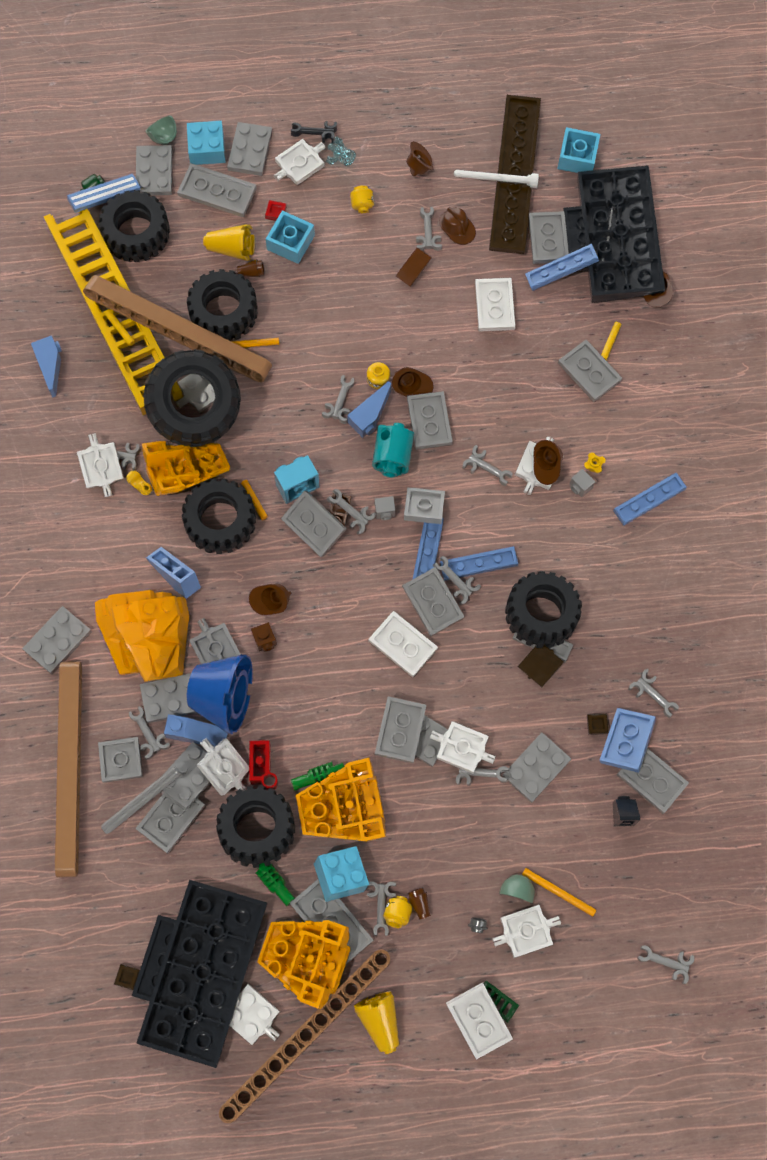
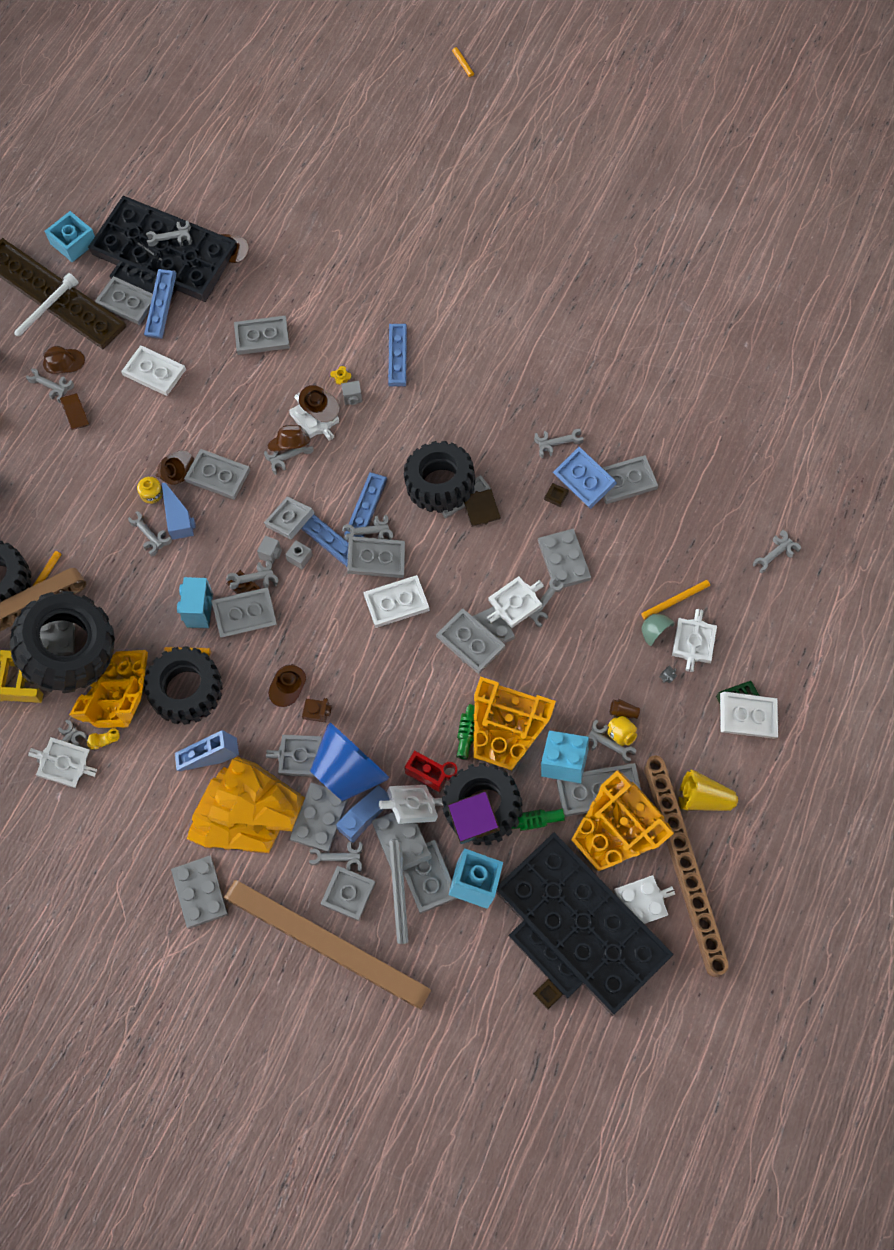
camera: 55 degrees left, 5 degrees down
(187, 858) = (476, 878): none -> medium azure brick
(232, 825) = (473, 817): none -> dark purple tile
(393, 450) = (224, 513): teal cylinder -> none
(396, 540) = (301, 559): none -> light grey plate
(500, 458) = (289, 438): none -> reddish brown piece
(610, 341) = (246, 306): yellow piece -> none
(625, 811) = (641, 512): black slope -> none
(640, 240) = (182, 235): none -> light grey bar

